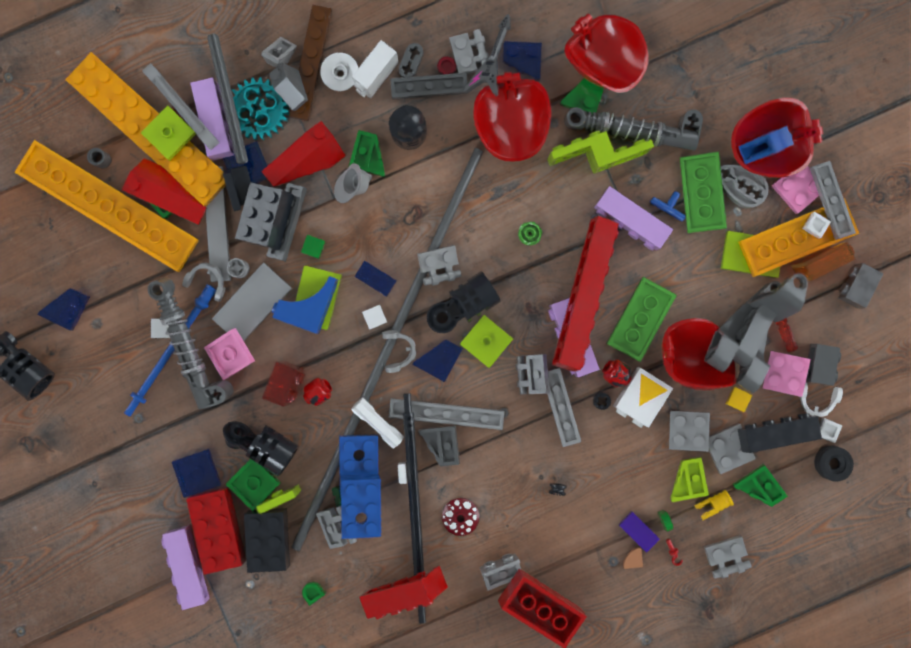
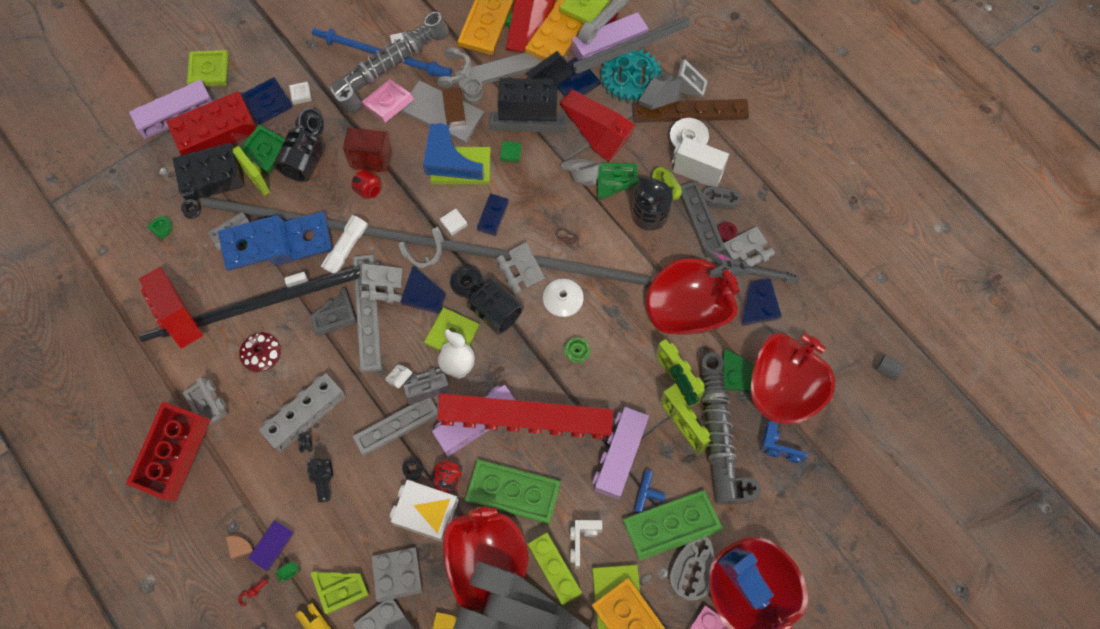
camera: 80 degrees right, 20 degrees down
(145, 526) = (209, 67): none -> lime plate
(195, 438) = (300, 93): none -> white tile
(252, 290) = (454, 107): none -> reddish brown tile
(305, 561) = (192, 213): none -> black bush
(385, 106) = (669, 180): none -> lime beam
(418, 395) = (382, 277): none -> light grey plate
(479, 242) = (563, 306): none -> white dish
(514, 342) = (456, 356): none -> white hair
(516, 397) = (398, 376): none -> white tile
(530, 487) = (302, 412): none -> light grey brick
(588, 480) = (320, 474): none -> black axle
(599, 147) = (684, 384): none -> dark green axle
(649, 87) = (770, 437): none -> blue bracket
(689, 262) = (590, 529): none -> white bracket
(718, 299) = (554, 569): none -> lime brick

